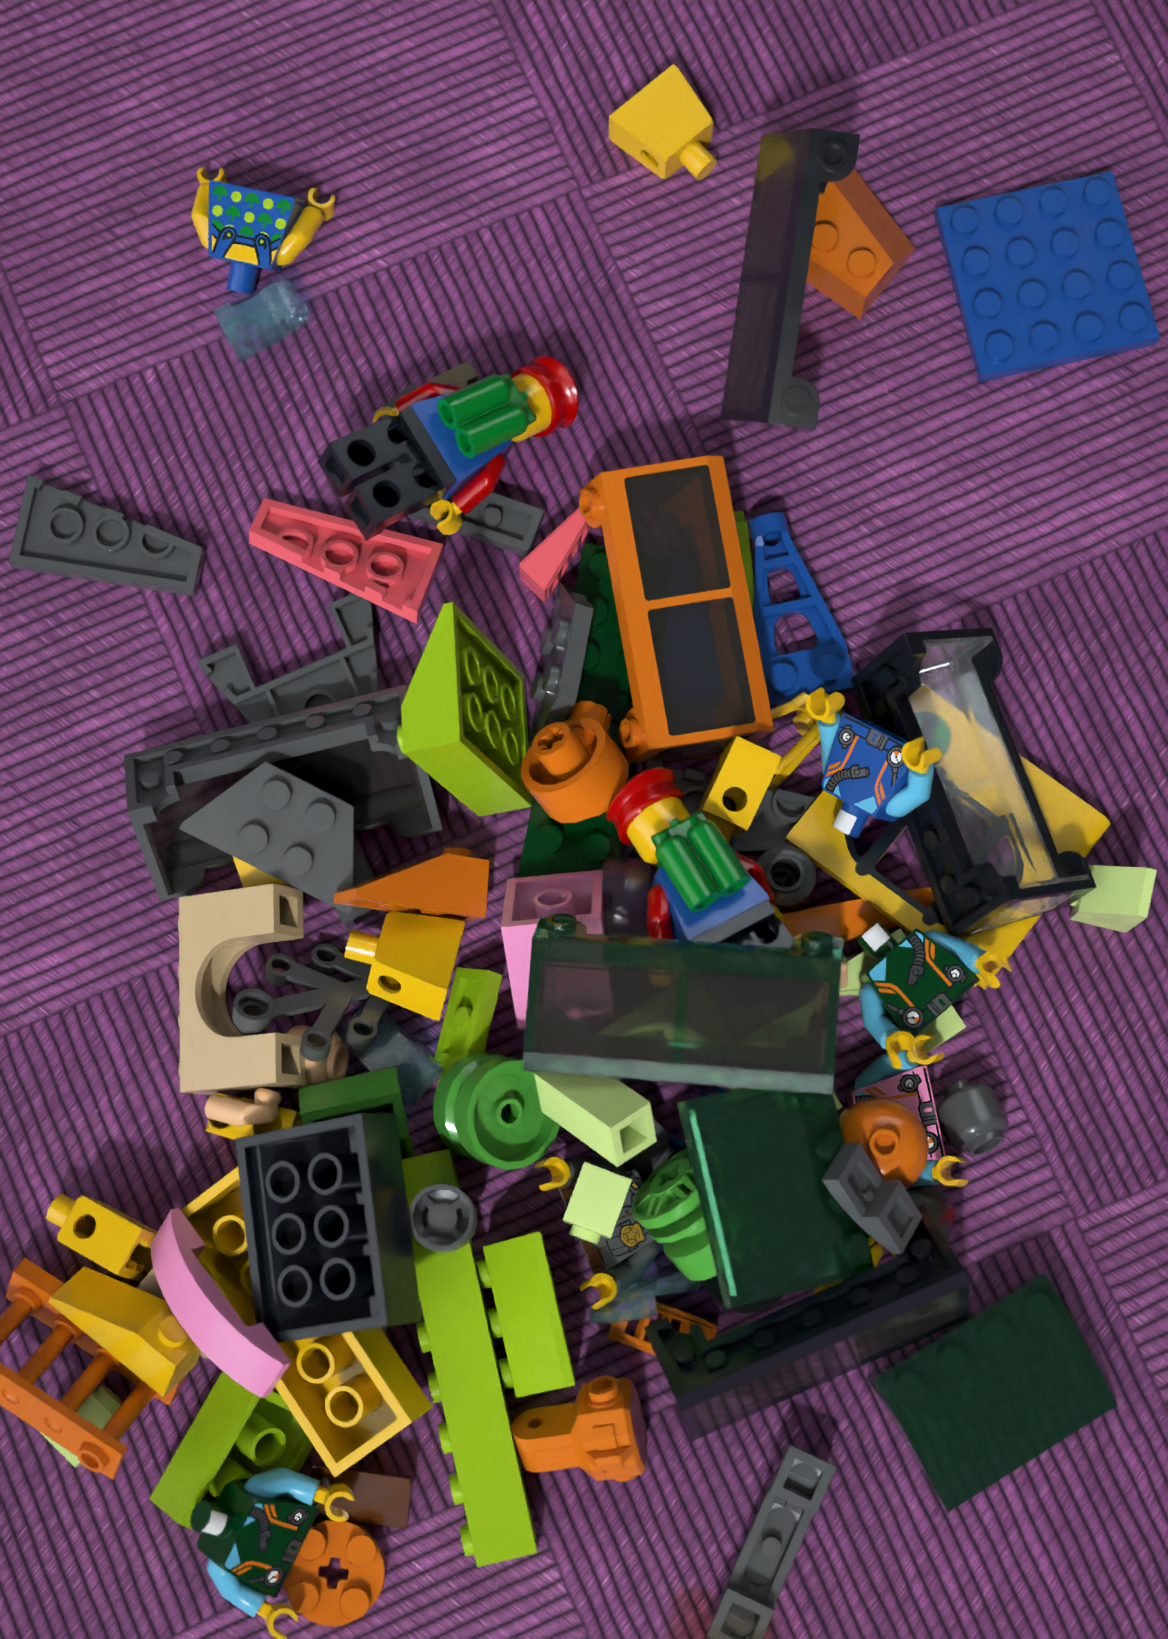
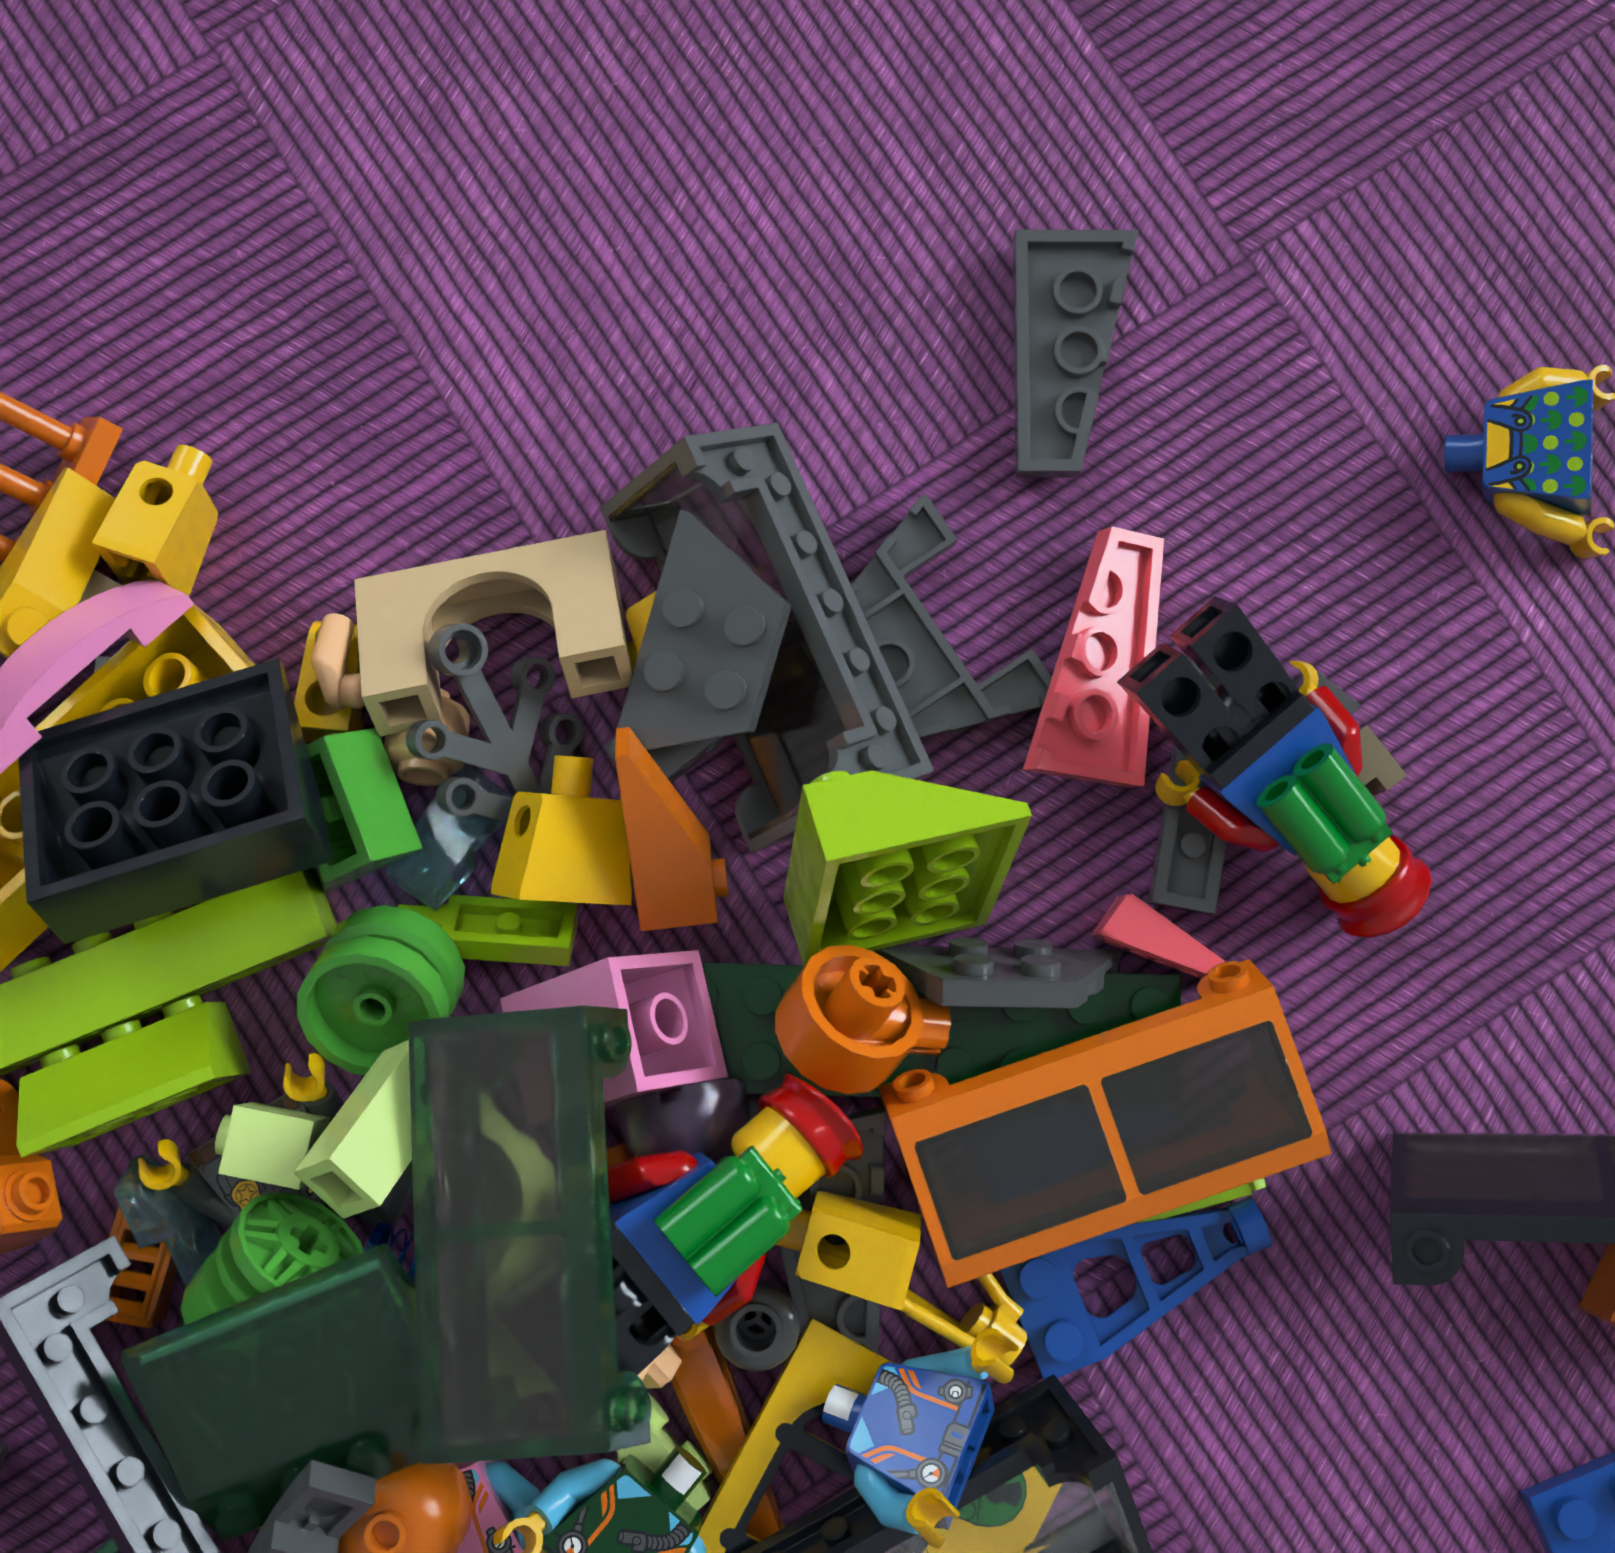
camera: 75 degrees right, 5 degrees up
(262, 319) = (1413, 490): clear light blue leg -> none
(442, 1218) = (219, 945): flat silver wheel -> none

